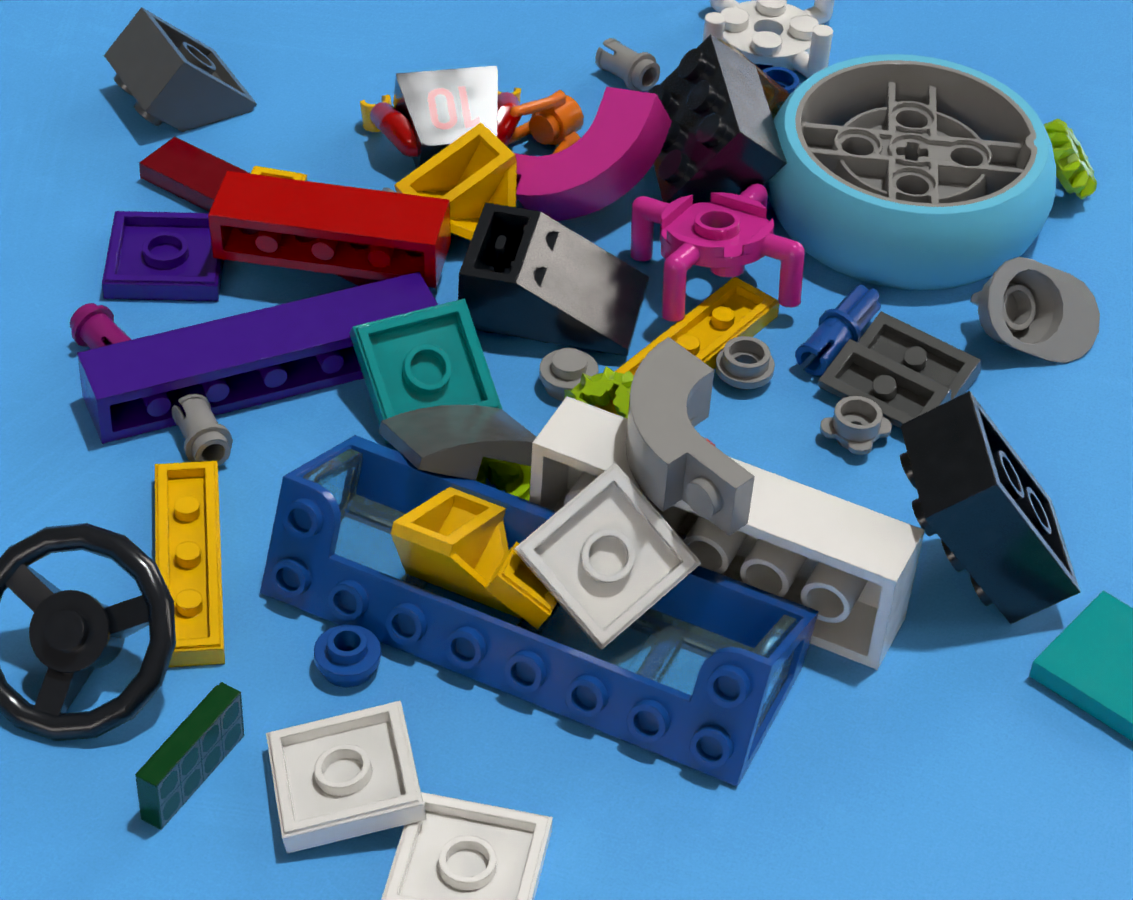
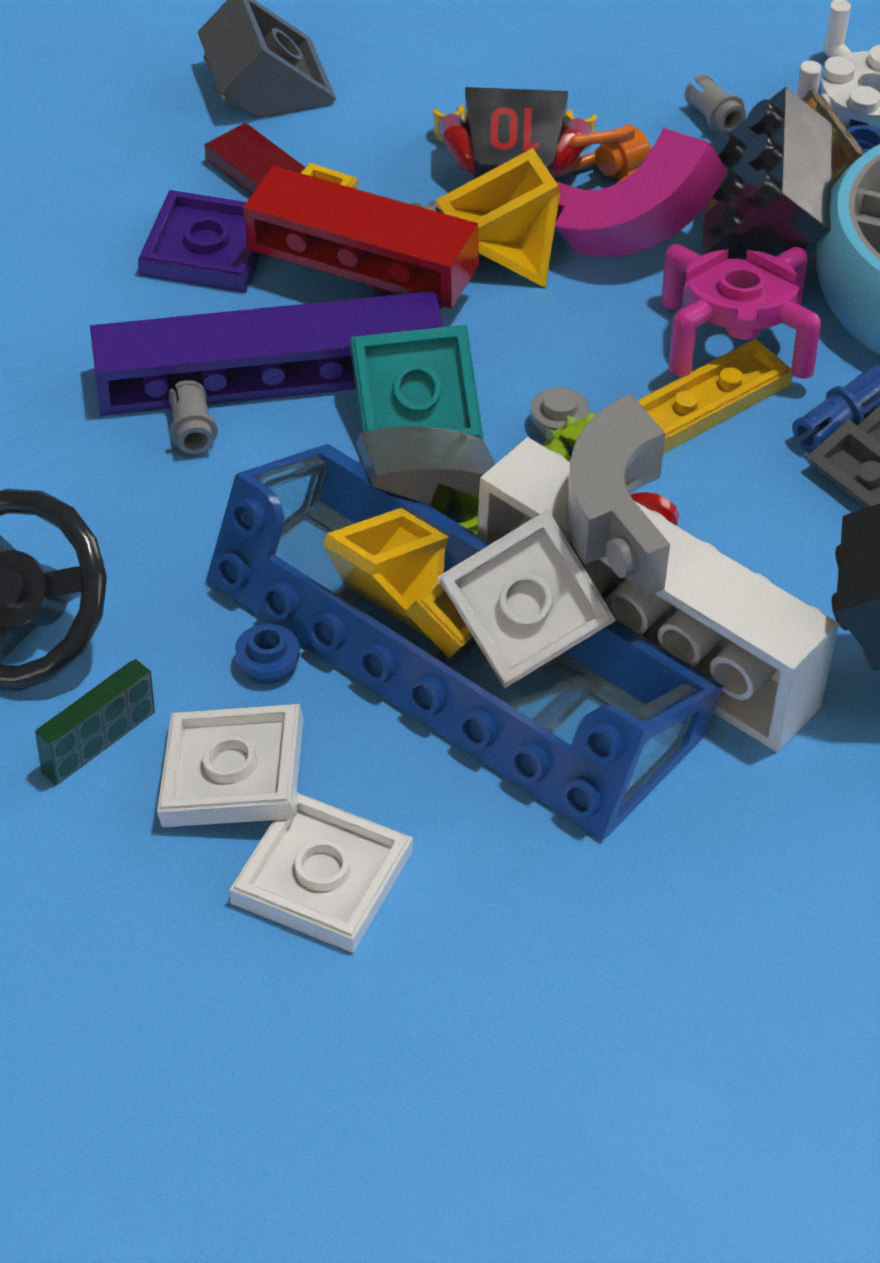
camera: 15 degrees right, 5 degrees up
(95, 327) = (119, 301): magenta pin -> none
(191, 558) = (147, 541): yellow tile -> none
(548, 283) = (561, 319): black slope -> none
(745, 363) = (738, 428): light grey plate -> none
(856, 424) = (827, 504): light grey plate -> none

